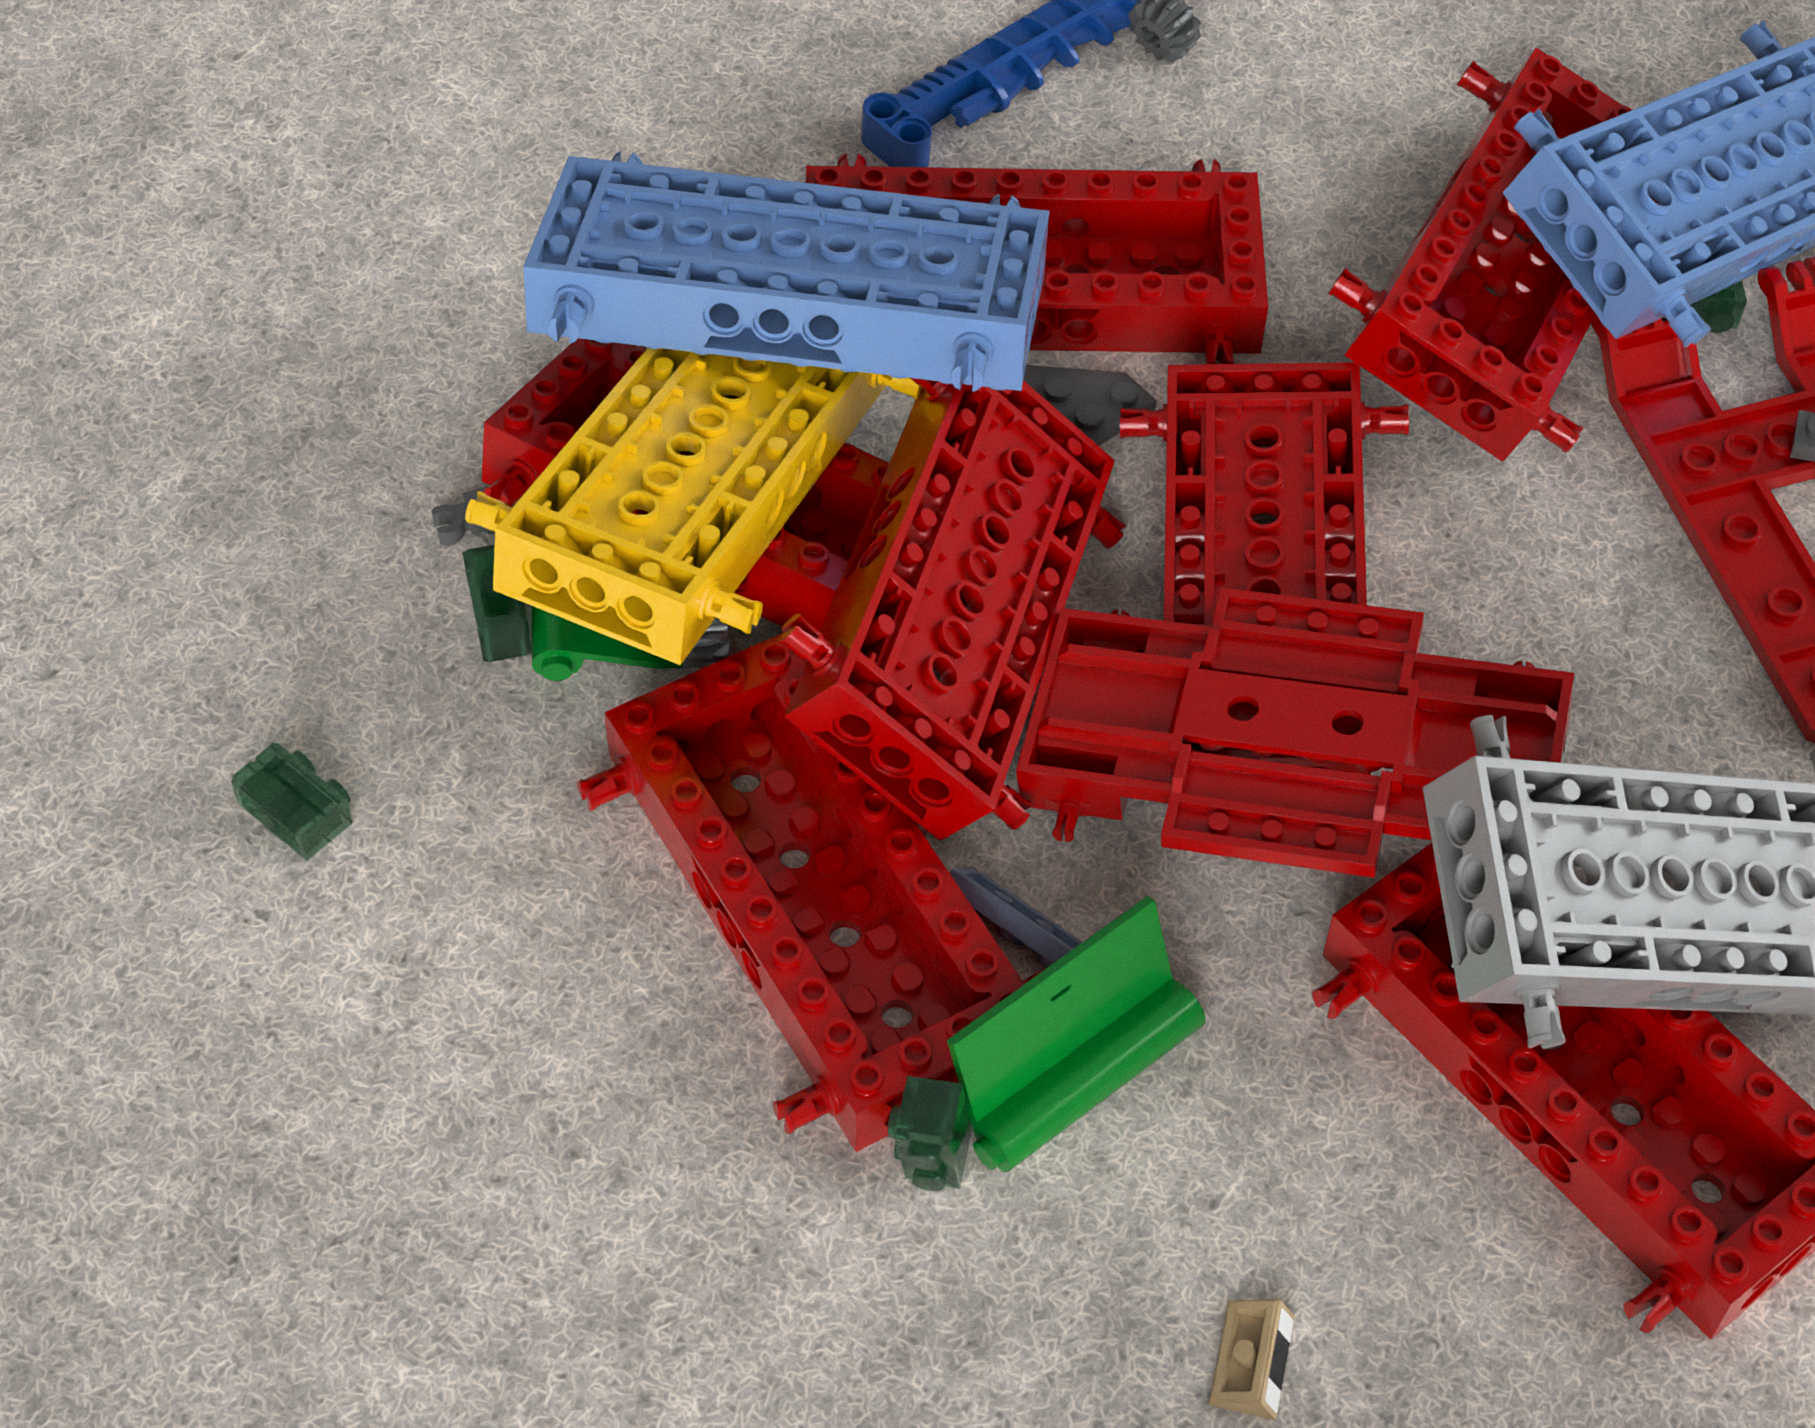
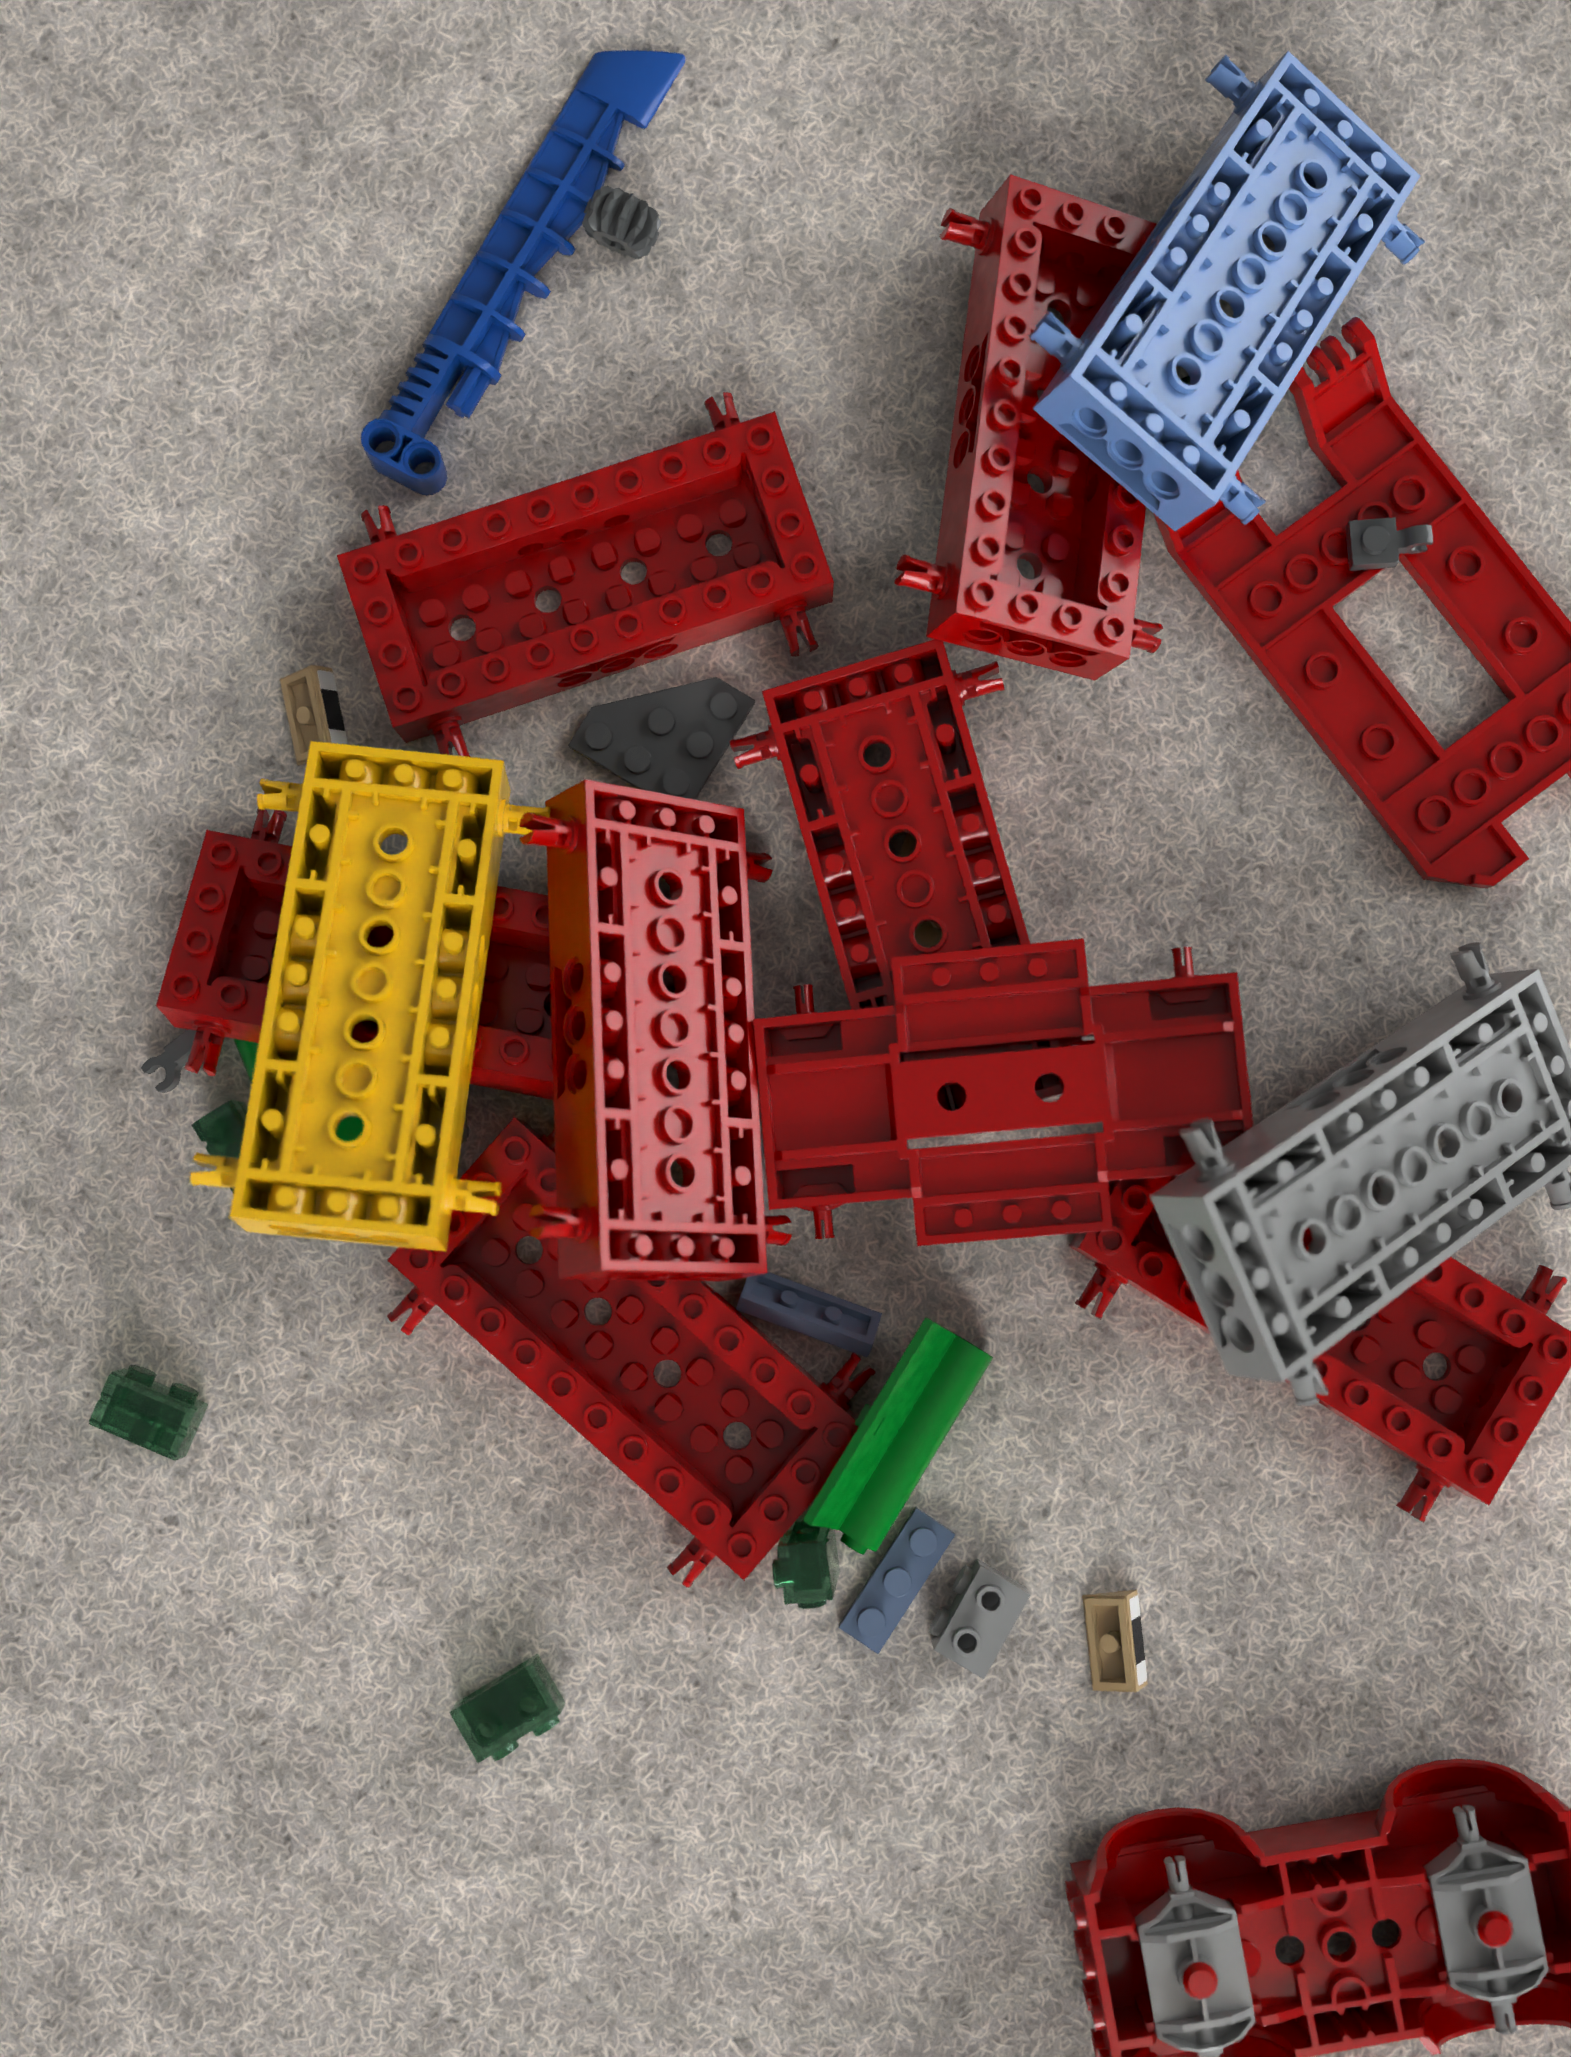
camera: 15 degrees left, 30 degrees up
(539, 1193) = (508, 1709): none -> clear green brick
(788, 272) = (384, 824): medium blue piece -> none
(1020, 1213) = (896, 1580): none -> sand blue plate
(1102, 1270) = (978, 1617): none -> light grey brick

